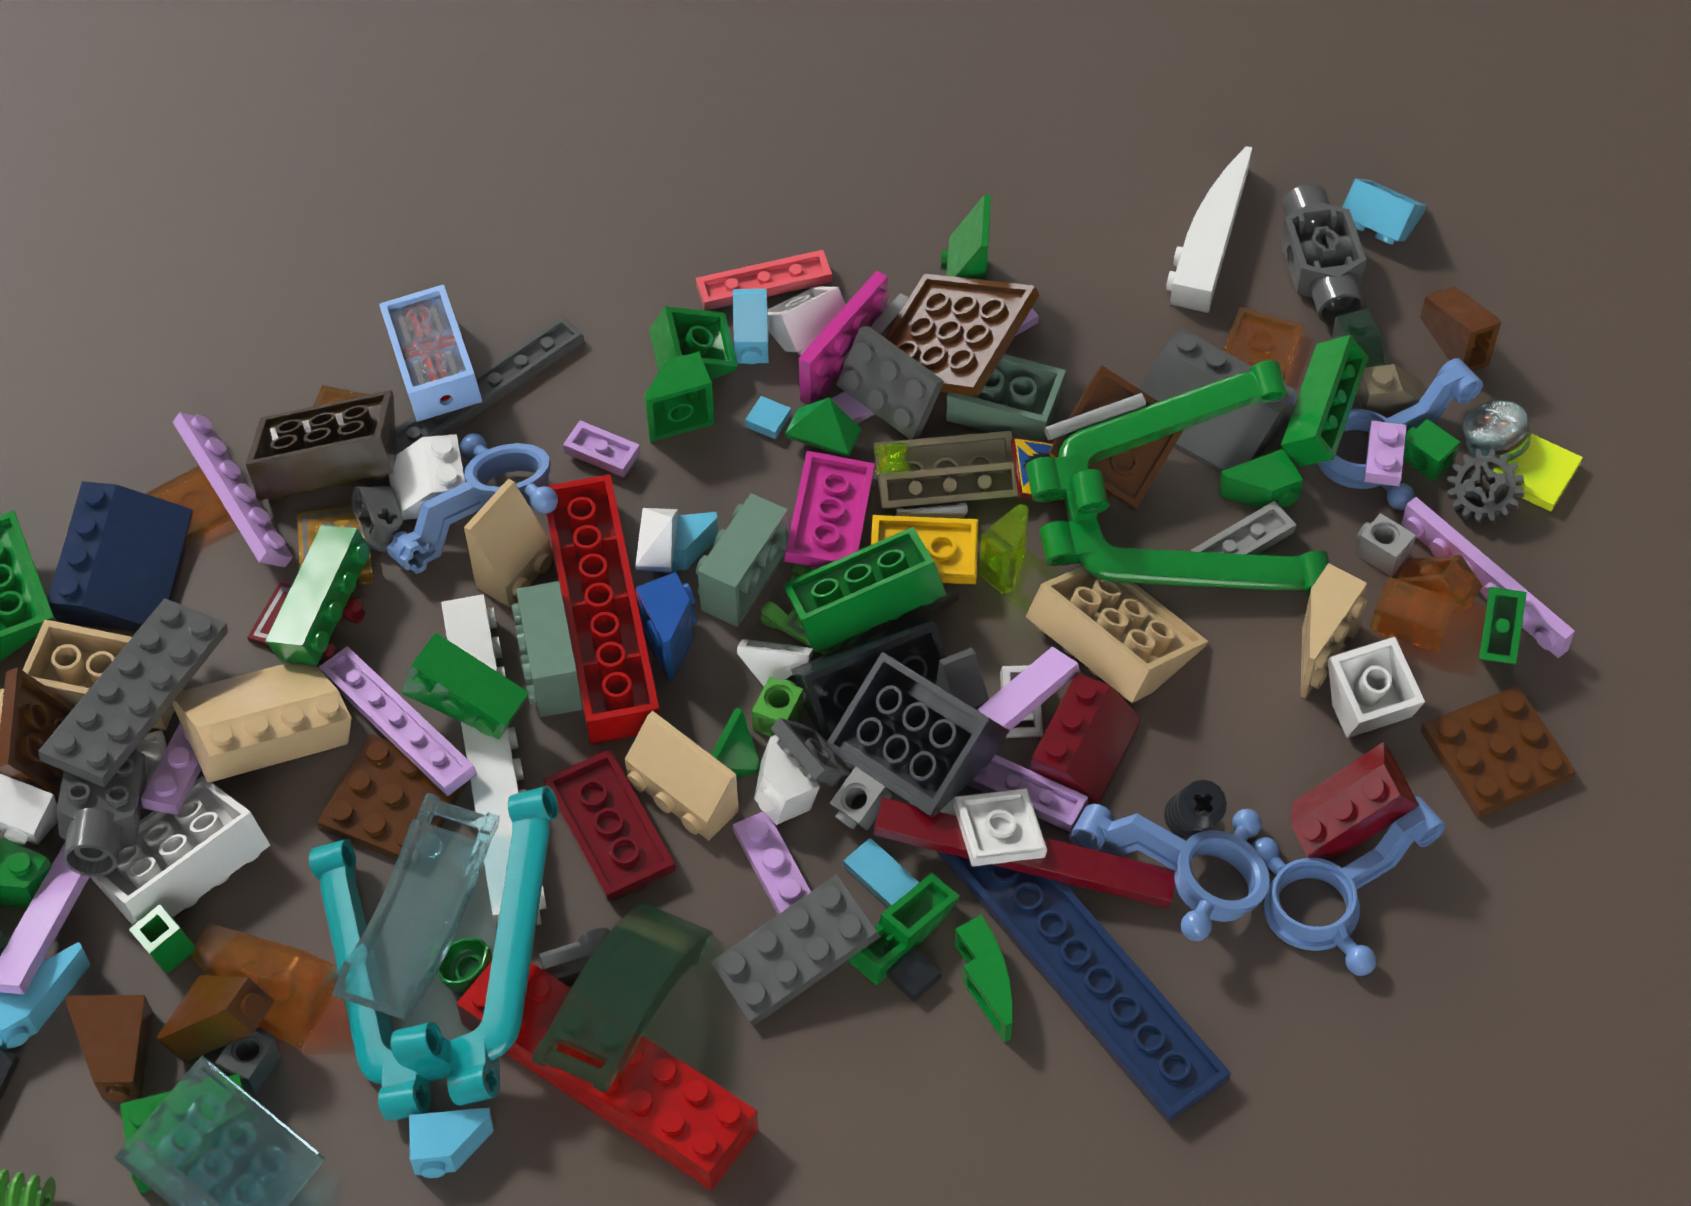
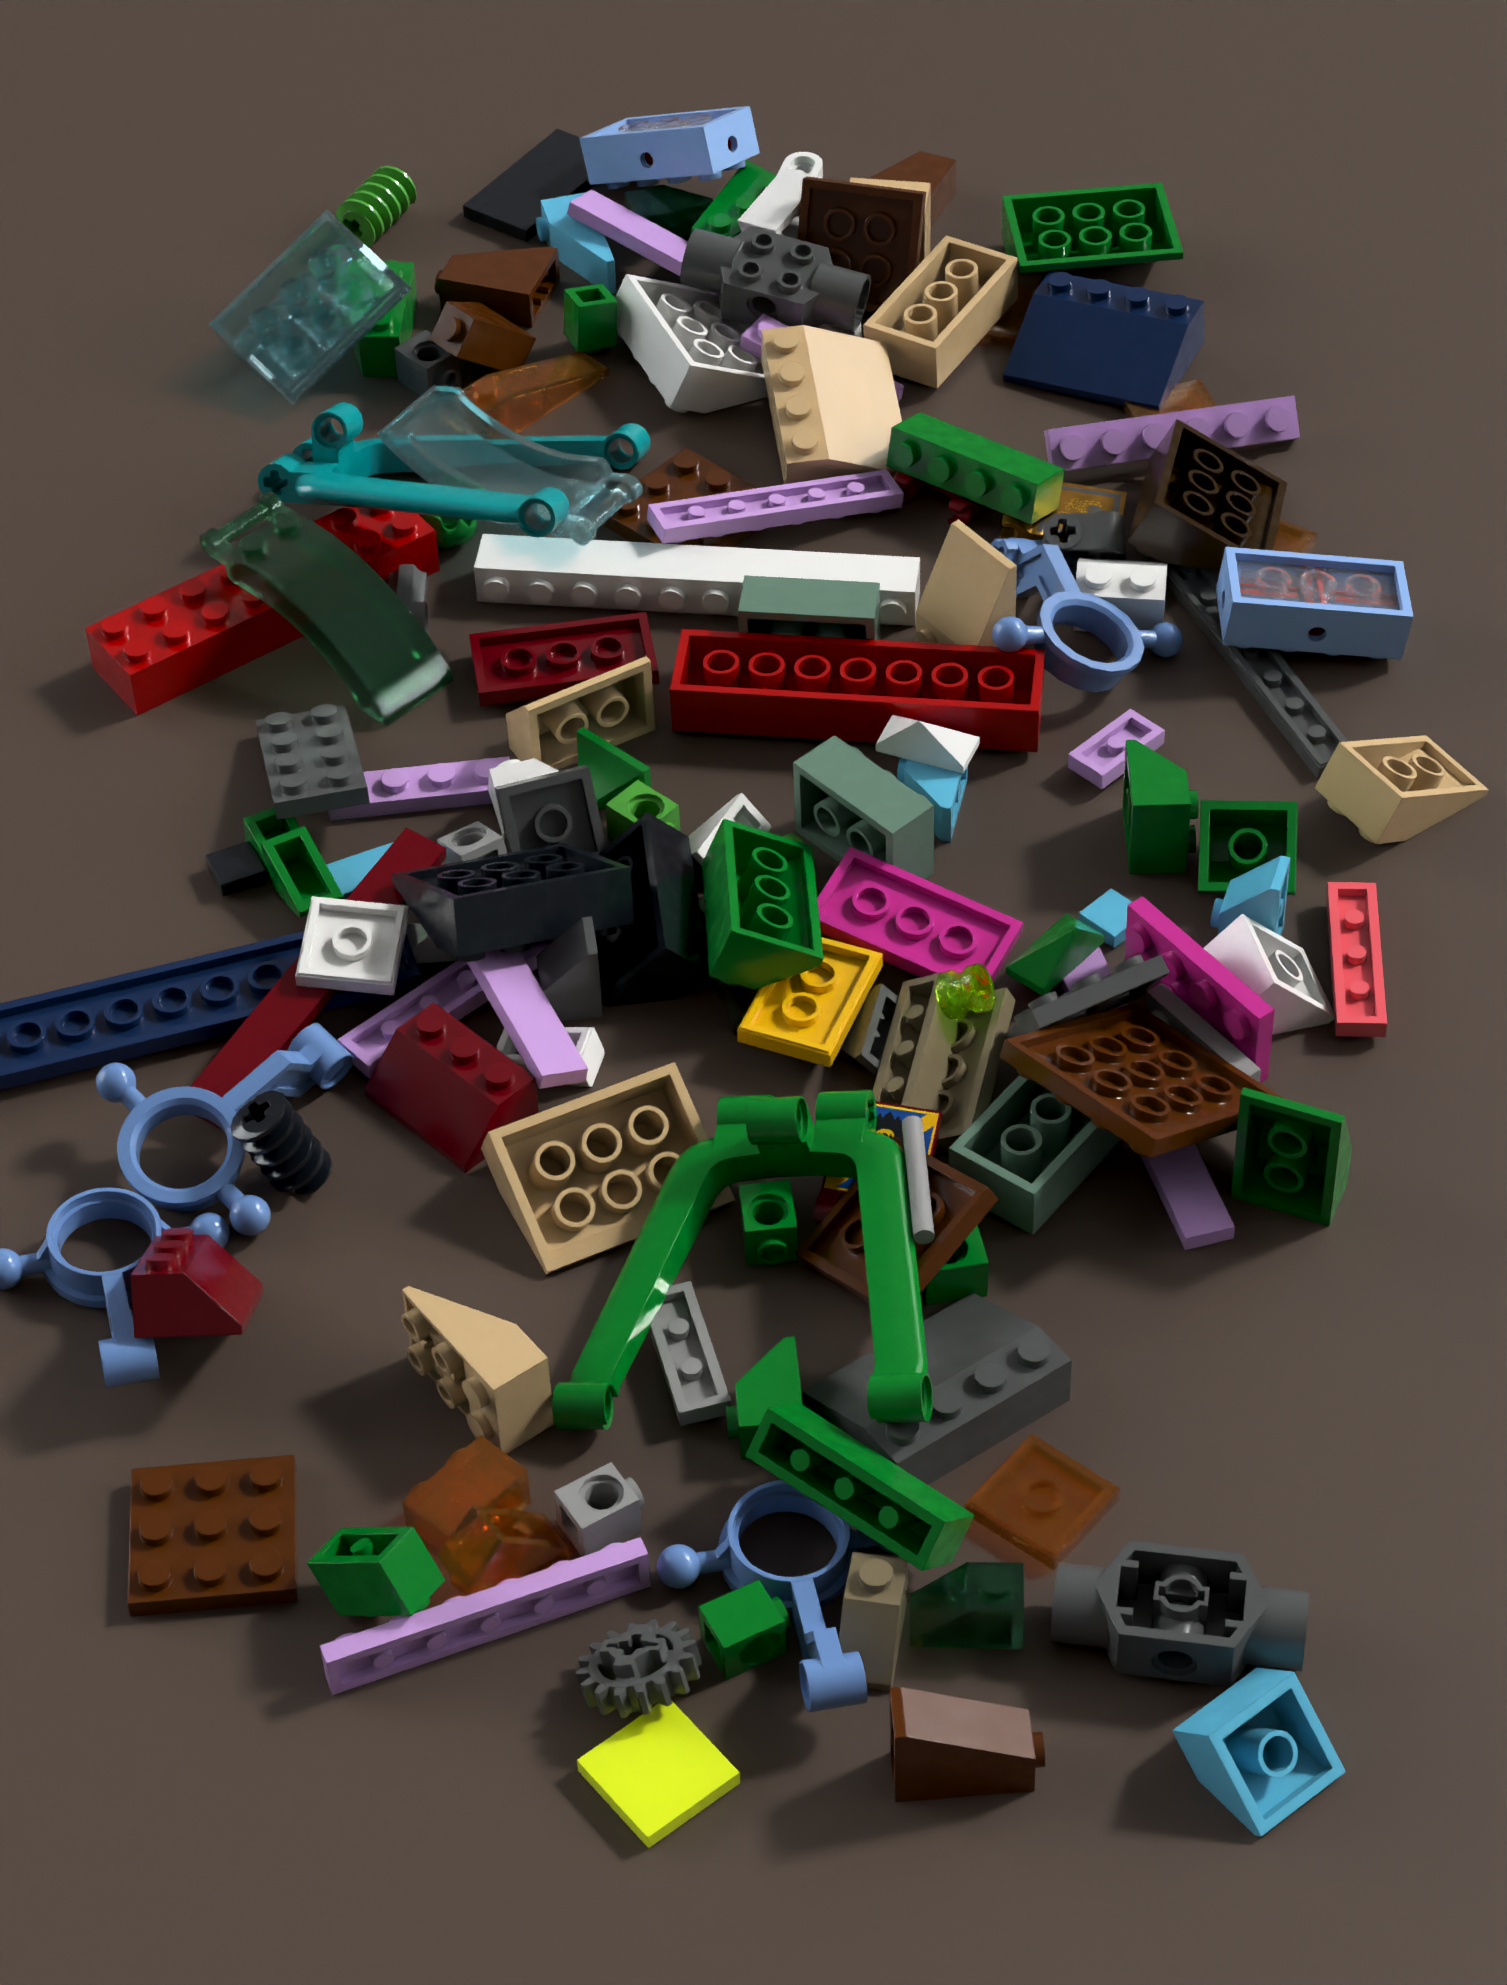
camera: 110 degrees right, 10 degrees down
(133, 692) = (881, 296): dark grey plate -> none
(446, 1139) = (244, 466): medium azure slope -> none
(463, 687) = (767, 526): green wedge -> none
(595, 284) = (1396, 786): none -> tan slope
(667, 620) = (788, 723): blue slope -> none
(986, 974) = (185, 918): green slope -> none
(1004, 549) = (754, 1052): clear neon green tile -> none
(1125, 511) = (768, 1222): none -> green brick
(1208, 238) = (1279, 1493): white slope -> none
(1372, 687) = (353, 1388): white slope -> none
(1385, 453) = (738, 1537): lavender plate -> none
(1499, 427) = (733, 1722): clear light blue head -> none

